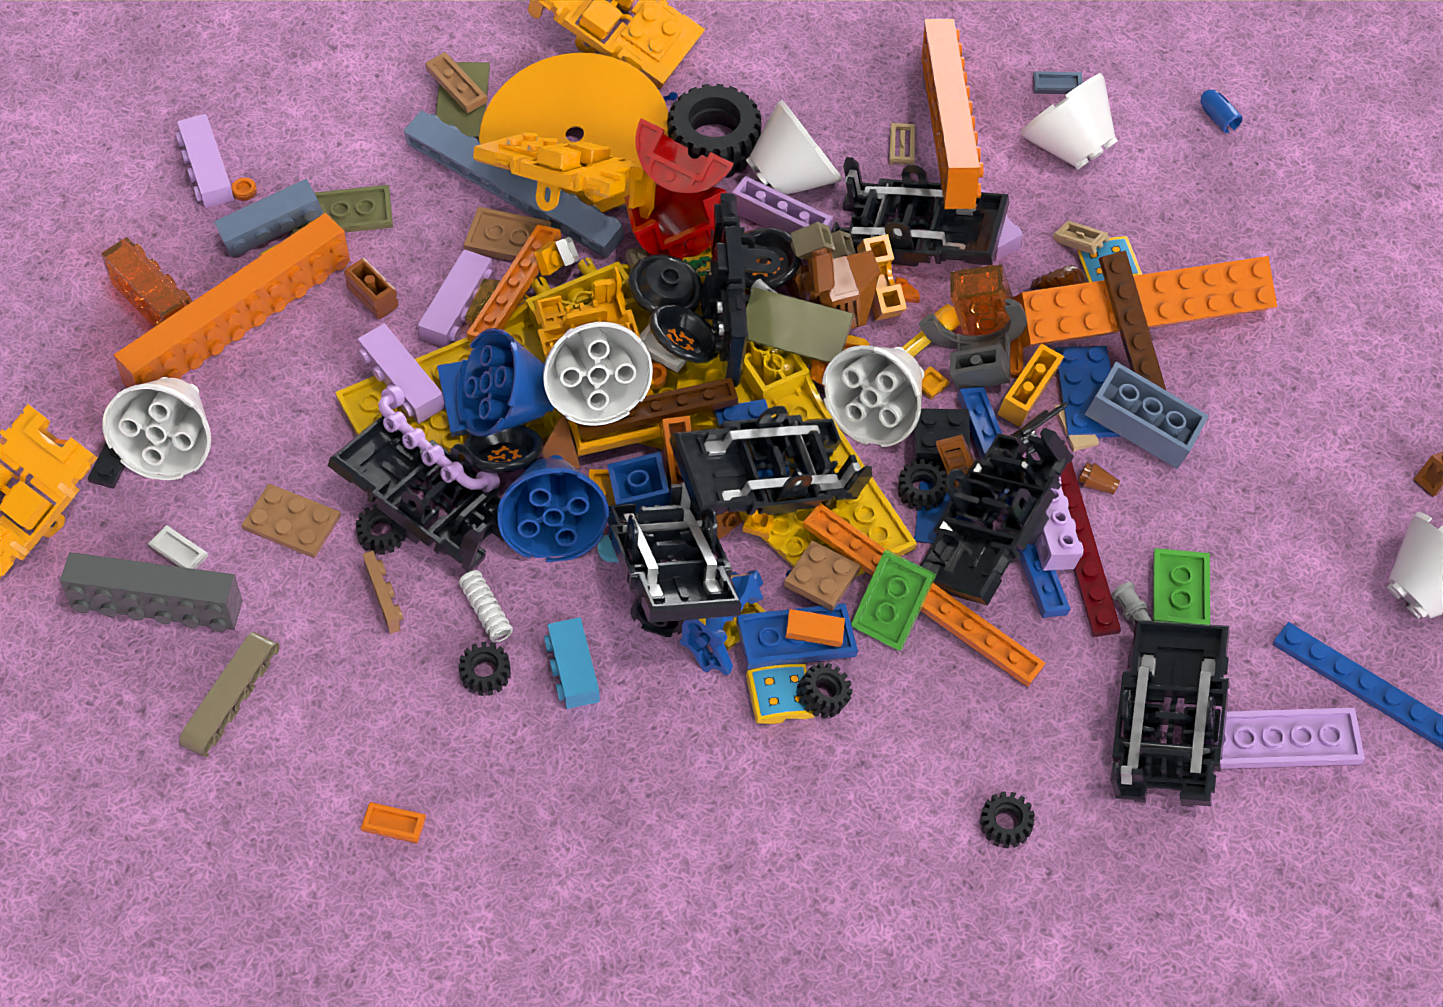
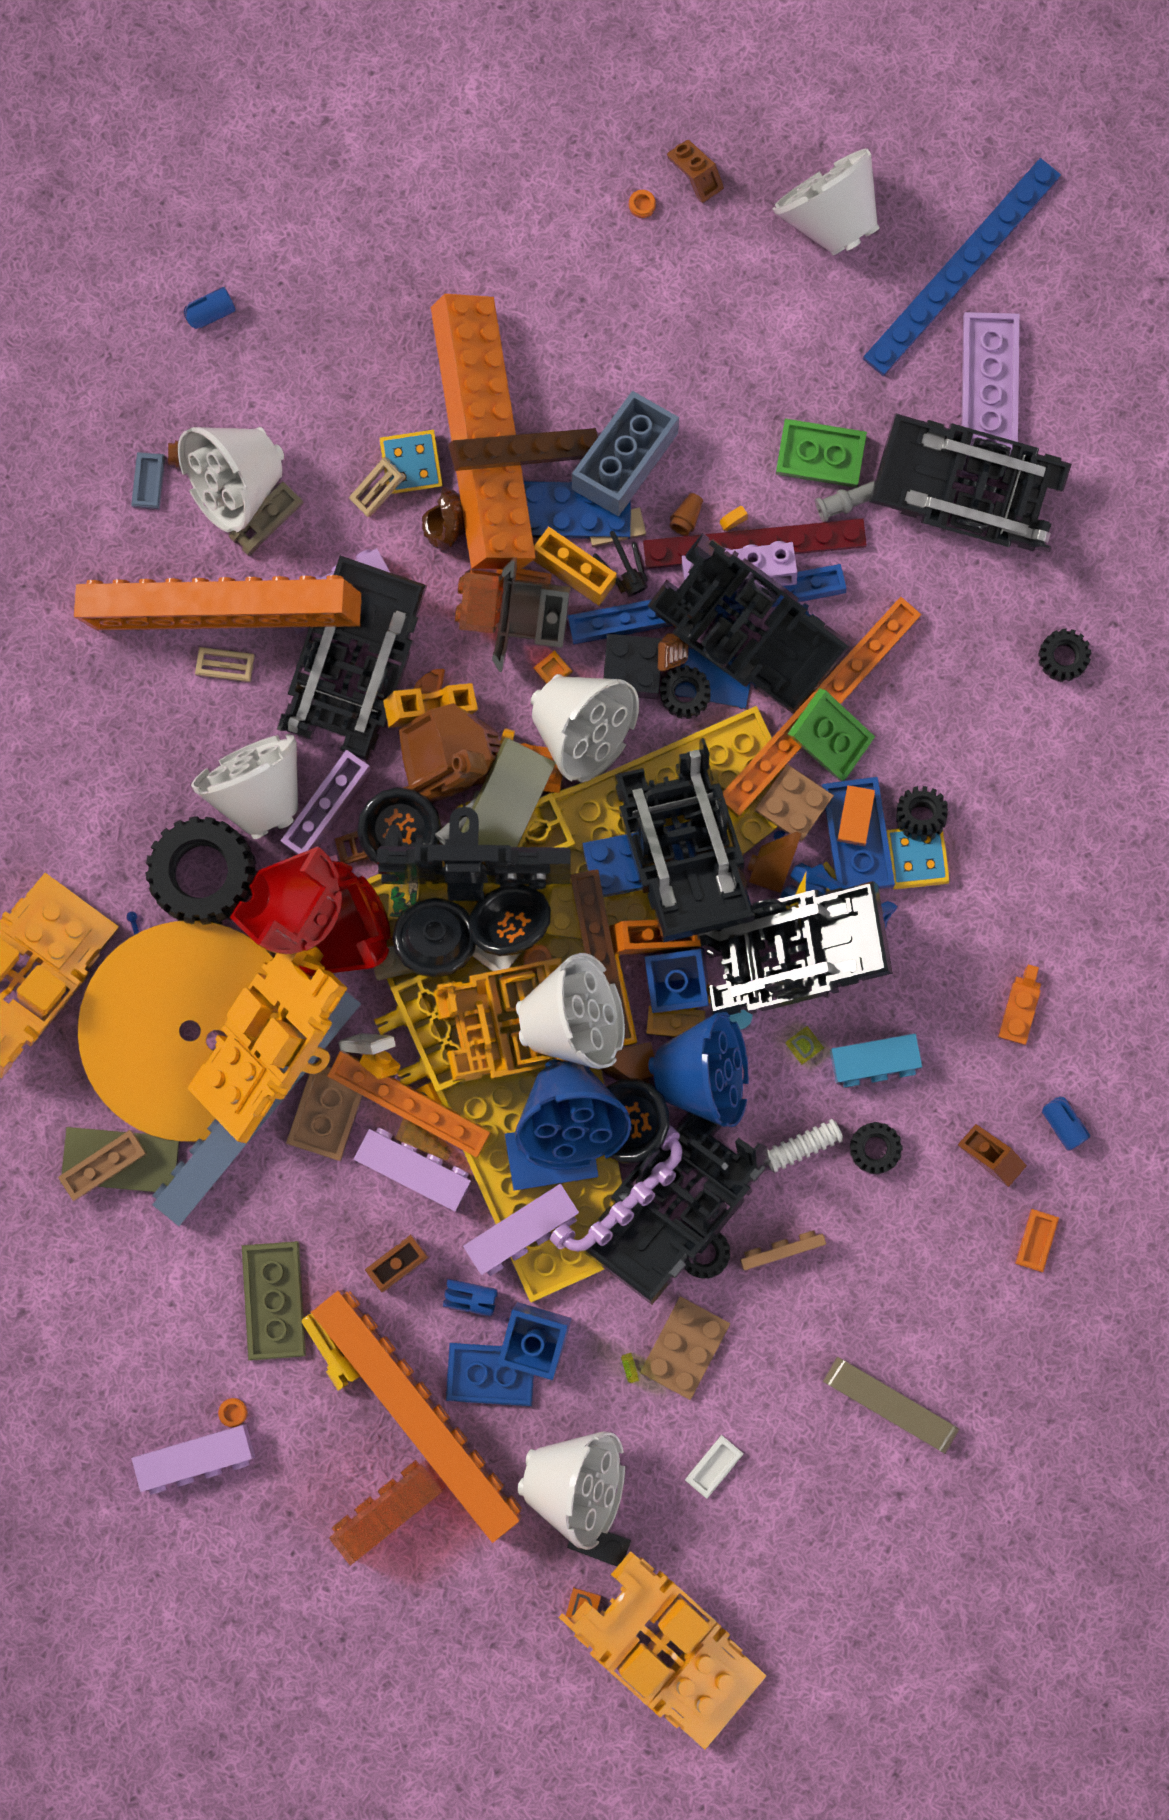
camera: 80 degrees left, 25 degrees up
(151, 591) = (778, 1489): dark grey brick -> none
(269, 218) = (289, 1381): sand blue brick -> none
(271, 371) = (480, 1379): none -> blue tile
(273, 472) = (629, 1367): none -> clear neon green tile
(300, 394) = (534, 1340): none -> blue slope
(340, 348) = (470, 1297): none -> blue arm
(477, 773) = (992, 1155): none -> dark orange slope
(514, 839) = (1065, 1123): none -> blue arm
(585, 604) = (804, 1045): none -> clear neon green tile
(634, 797) = (1021, 1007): none -> orange hinge
(761, 557) = (773, 862): none -> dark orange slope
(818, 237) = (395, 767): dark tan arch -> none
(946, 316) = (481, 648): yellow piece -> none
(1038, 163) = (271, 514): none -> dark tan plate
(1100, 517) = (733, 518): none -> light orange tile
(1400, 429) = (642, 203): none -> orange tile

